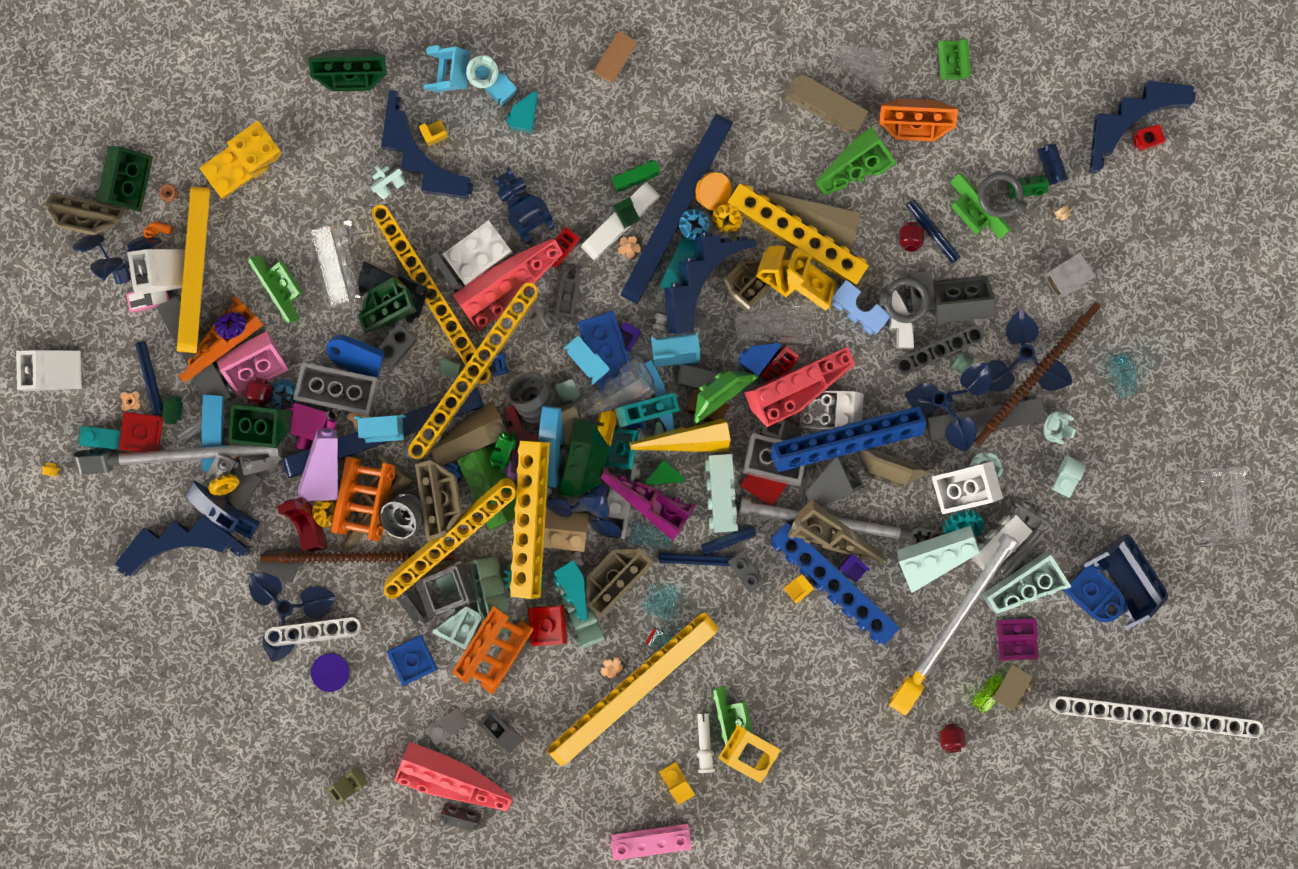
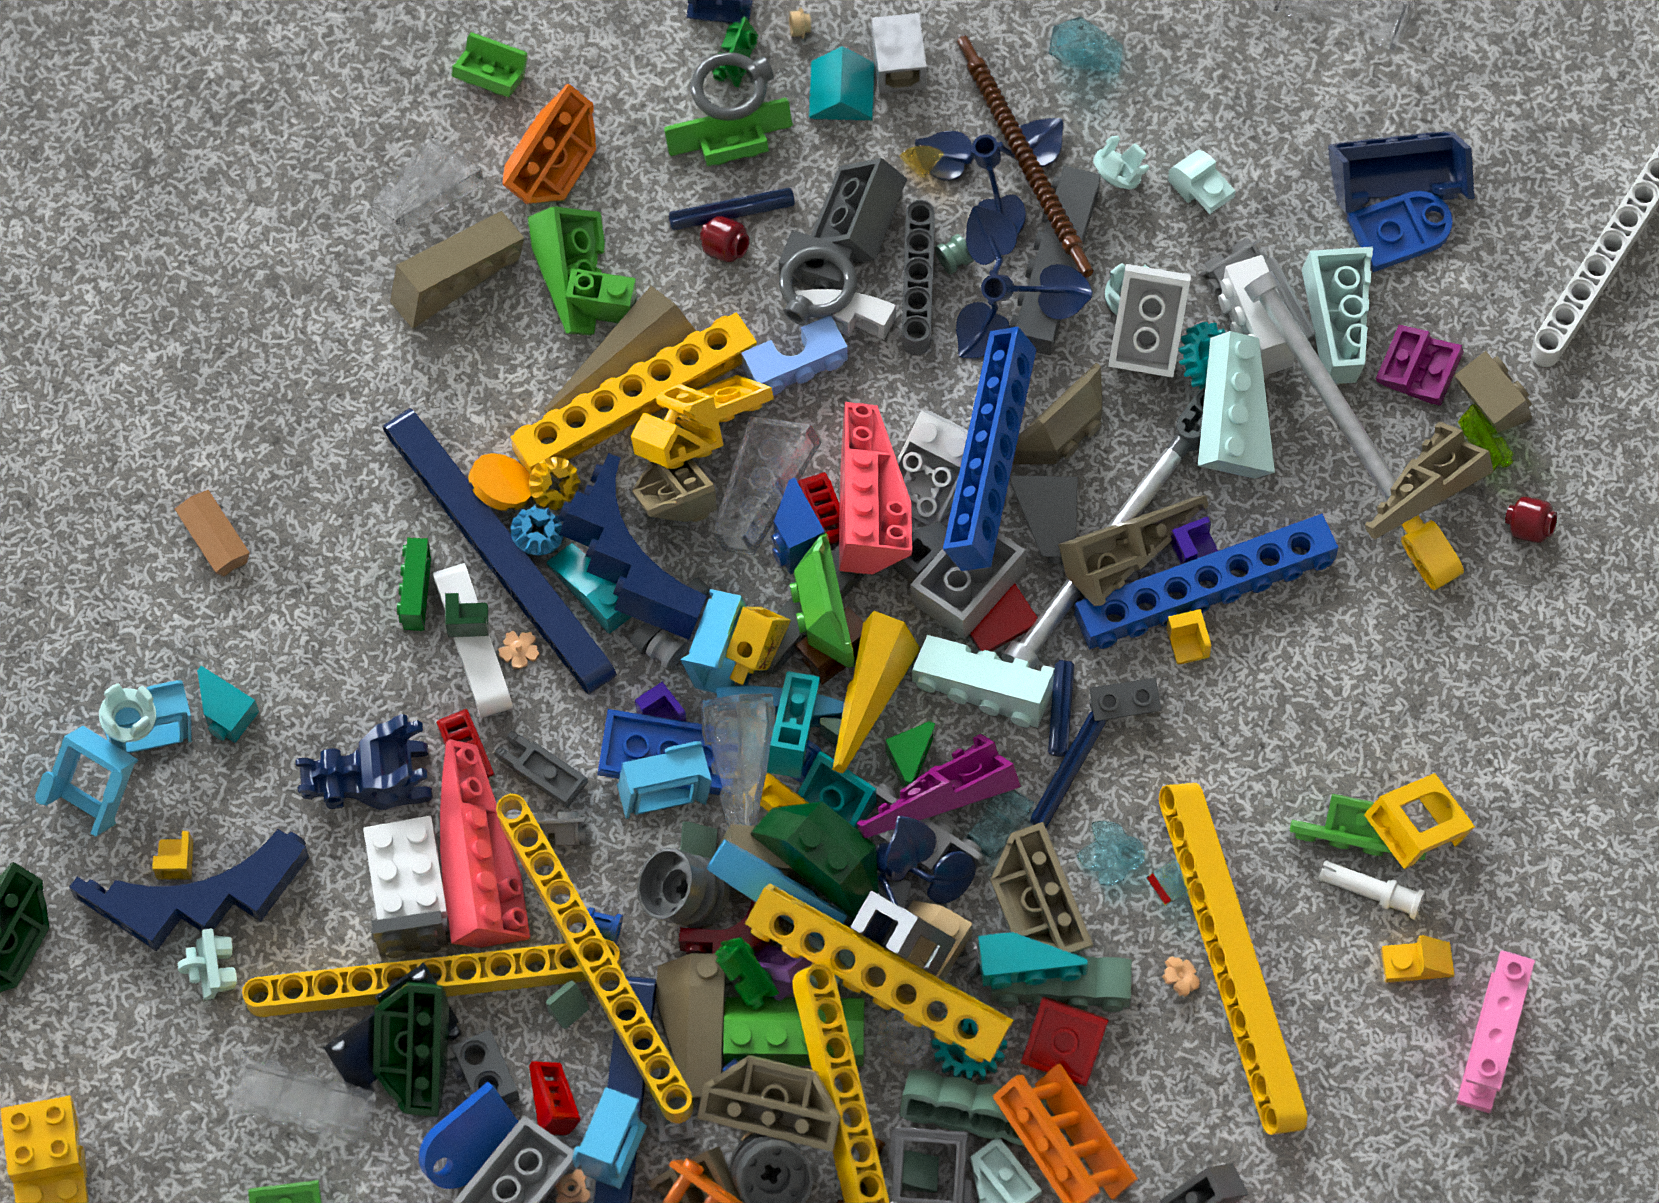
camera: 65 degrees left, 20 degrees down
(390, 385) = (553, 1119): none -> red slope
(560, 524) = (904, 931): none -> panel
(682, 369) = (759, 631): none -> yellow torso
(845, 188) = (601, 294): none -> bright green slope
(953, 679) = (1438, 473): none -> dark tan wedge
(1012, 318) = (922, 158): none -> clear yellow tile
(1035, 254) = (841, 86): none -> teal slope

